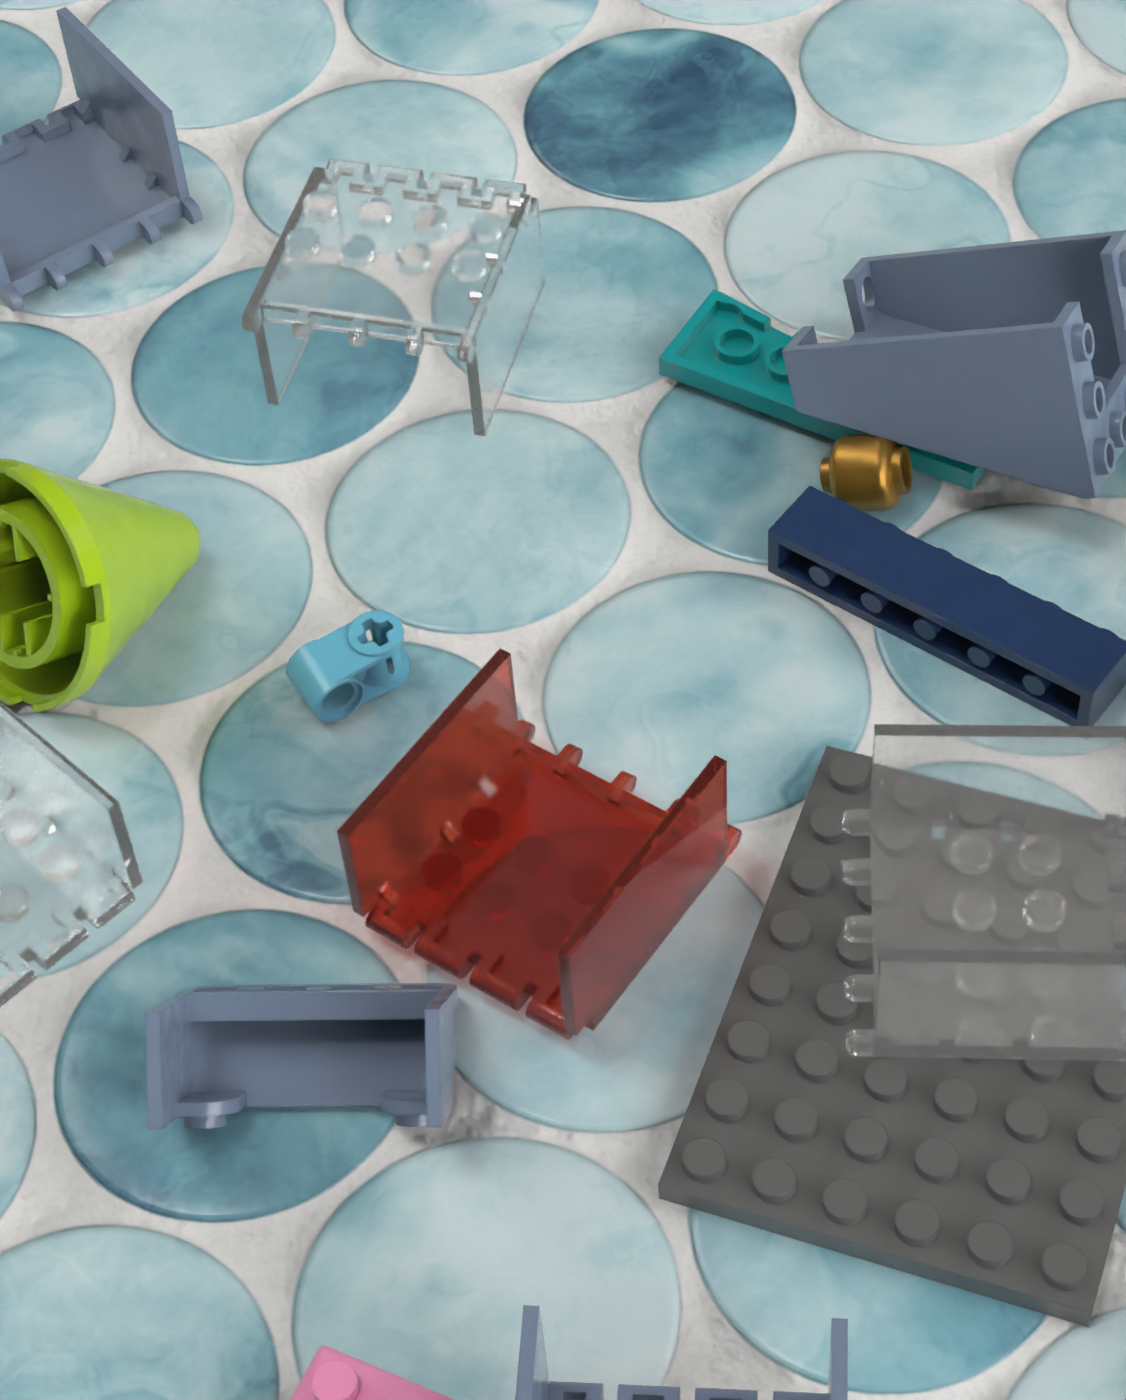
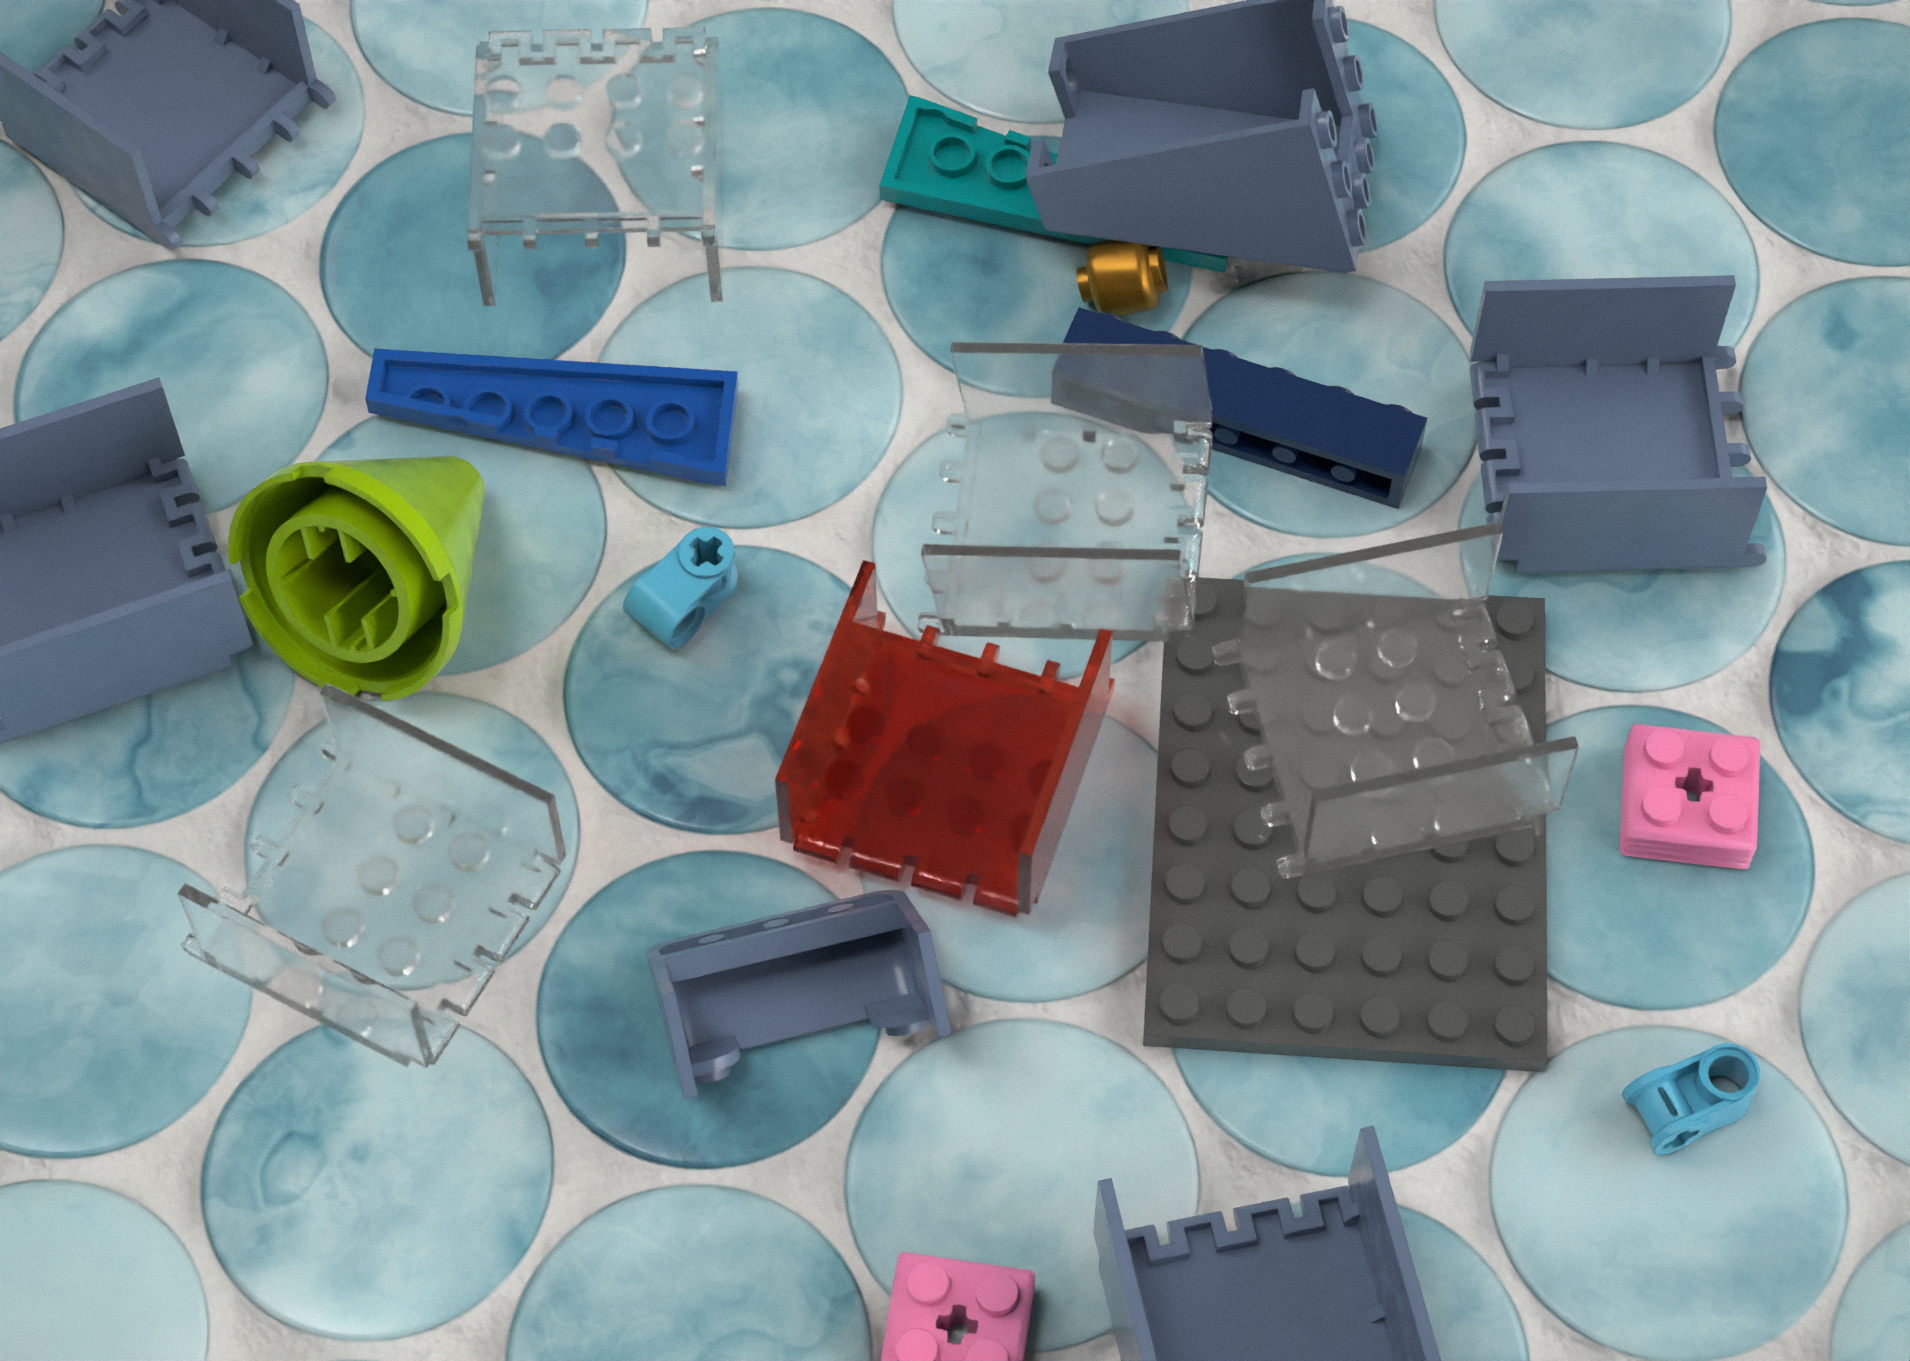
camera: 20 degrees left, 10 degrees up
(339, 505) = (604, 412): none -> blue wing
(758, 647) = (1073, 492): none -> clear windscreen

